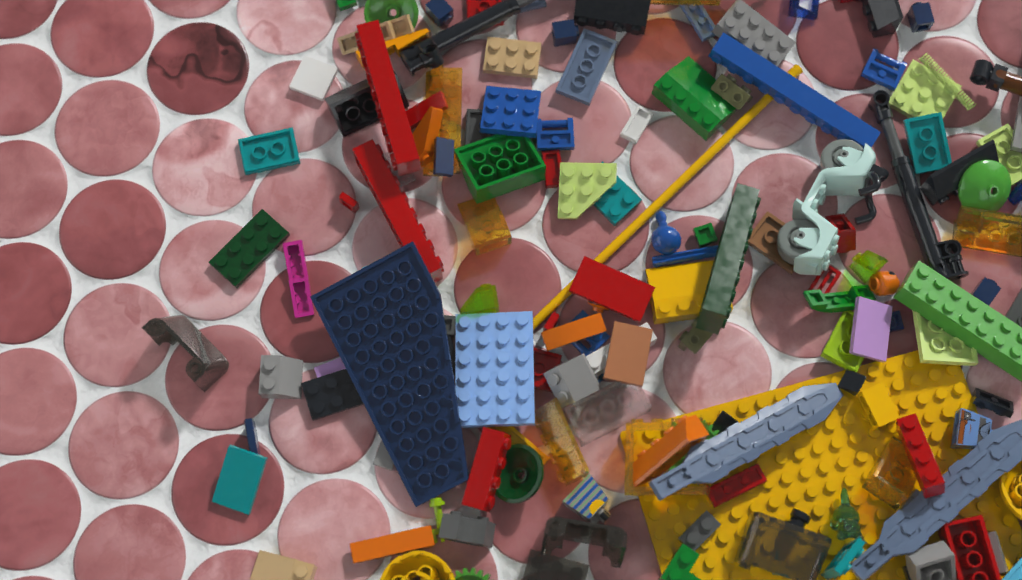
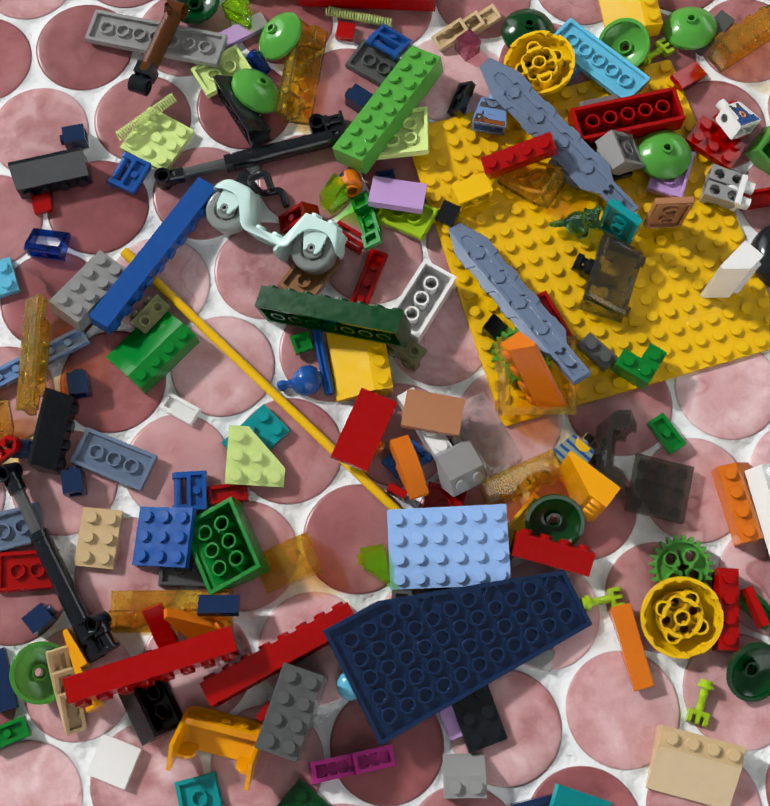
camera: 90 degrees left, 0 degrees up
(331, 163) = (219, 735): none -> light orange windscreen
(343, 219) = (291, 712): none -> dark grey brick
(467, 530) = (612, 571): dark grey brick -> none
(544, 501) = (587, 486): none -> light orange slope
(660, 33) = (79, 384): none -> dark blue brick
(751, 351) = (425, 297): none -> white brick
(772, 300) = (369, 276): none -> red tile
(927, 143) = (209, 137): teal plate -> none

